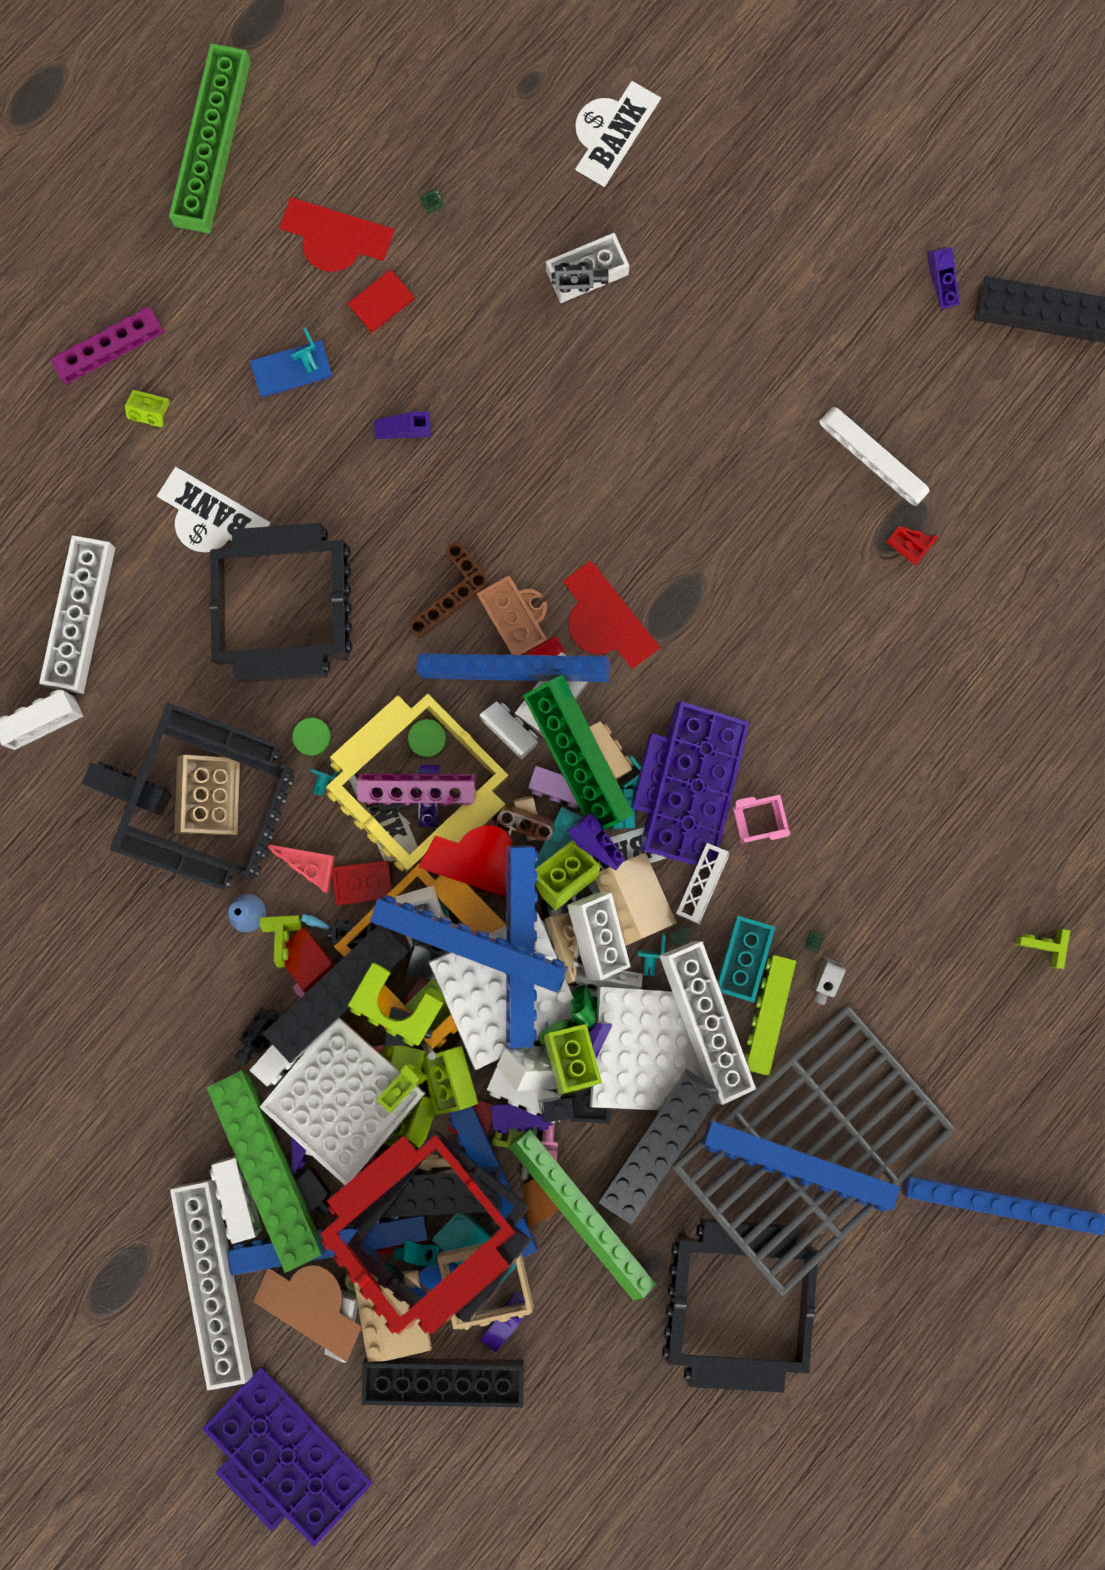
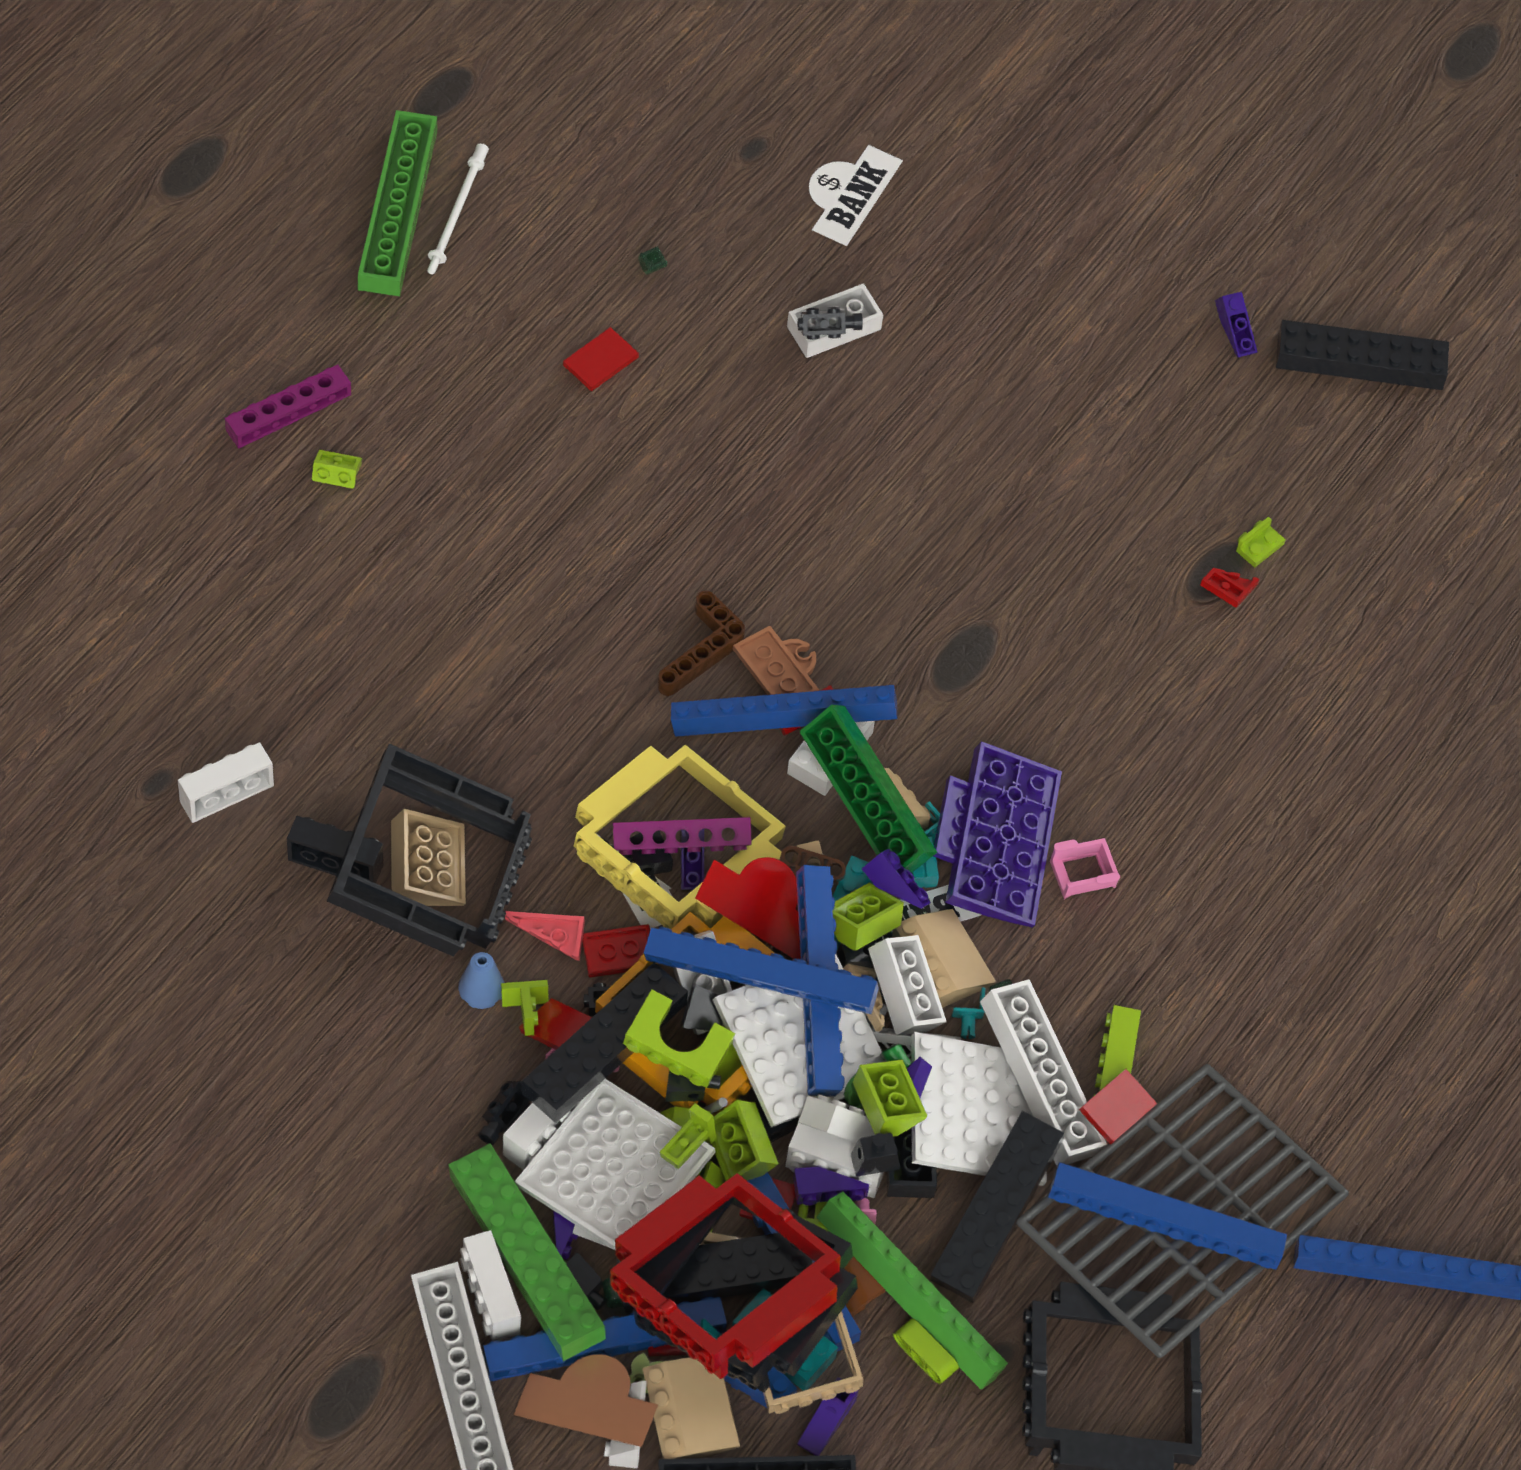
camera: 10 degrees left, 25 degrees down
(77, 614) = (267, 672): white brick -> none
(204, 514) = (411, 579): white sticker -> none
(281, 373) = (501, 427): blue tile -> none
(282, 97) = (476, 164): none -> white bar
(290, 661) = (521, 714): black door -> none
(305, 355) = (520, 407): teal bracket -> none
(311, 736) = (548, 798): bright green tile -> none
(313, 921) = (562, 992): medium azure piece -> none
(322, 781) = (565, 838): teal bracket -> none
(334, 238) = (542, 300): red sticker -> none
(404, 426) = (643, 477): dark purple slope -> none
(427, 738) = (685, 797): bright green tile -> none
(509, 729) = (781, 783): white slope -> none
(552, 785) = (841, 840): lavender brick -> none
(590, 1263) = (925, 1351): none -> lime beam
(604, 620) = (881, 663): red sticker -> none
(709, 888) = (1032, 939): white fence -> none
(745, 958) = (1081, 1010): teal brick -> none
(768, 1055) = (1118, 1106): none -> tile
(813, 941) = (1160, 995): clear green brick -> none
(831, 972) = (1180, 1030): light grey torso -> none
(874, 456) = (1177, 500): white beam -> none
(942, 501) = (1259, 542): none -> lime bracket
(1058, 948) = (1431, 991): lime bracket -> none

